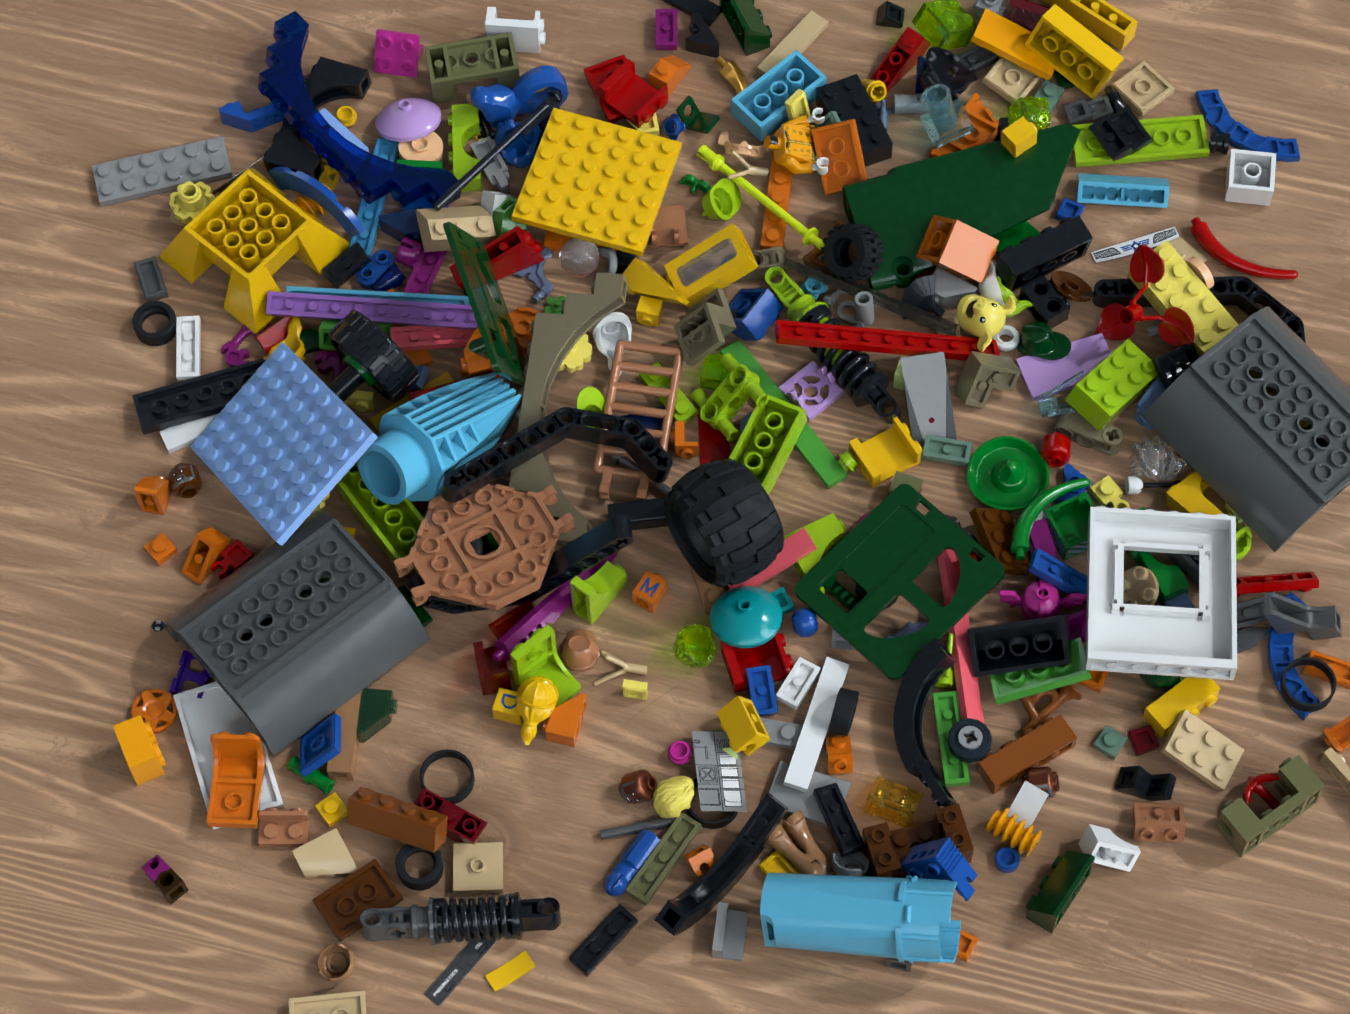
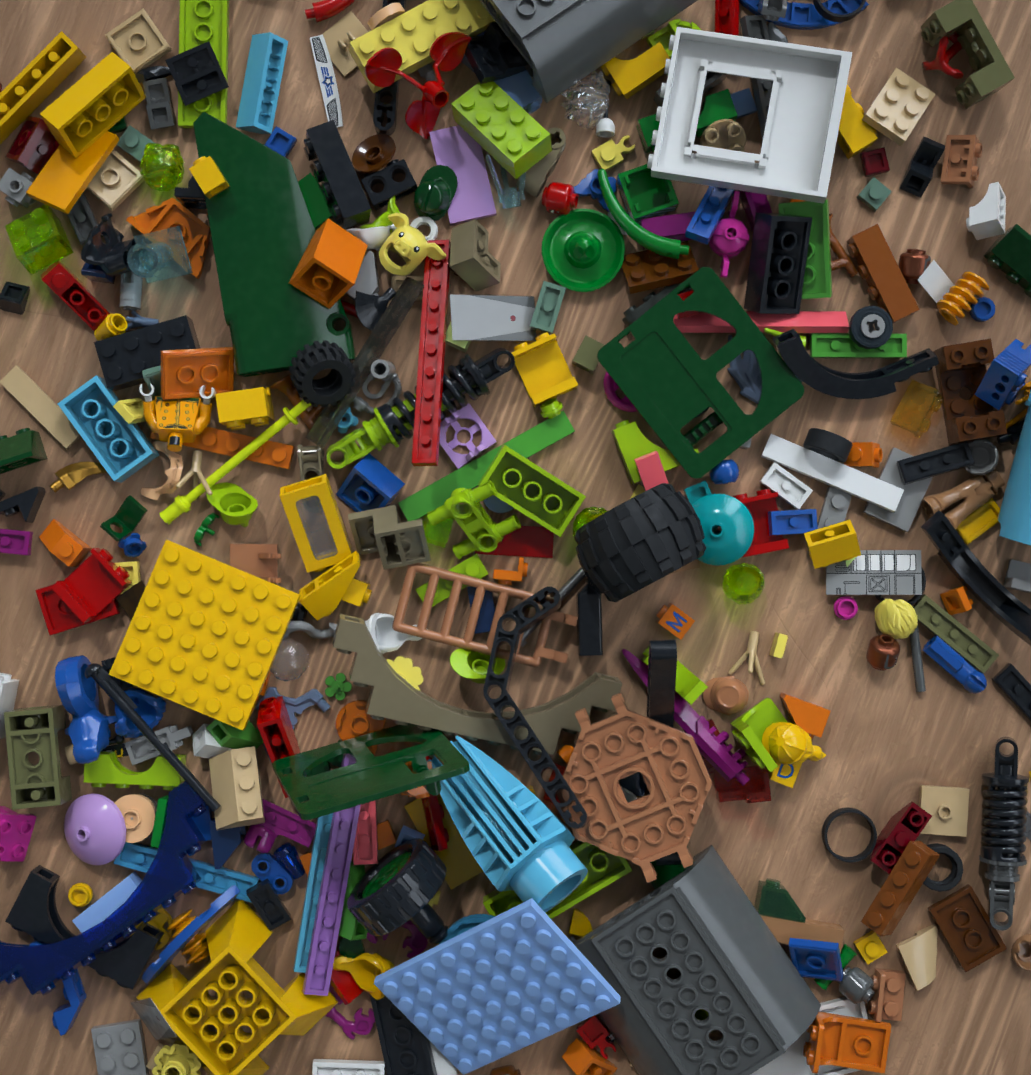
camera: 90 degrees left, 25 degrees up
(294, 791) = (856, 985): none -> dark grey head
(812, 199) = (245, 407): none -> yellow brick

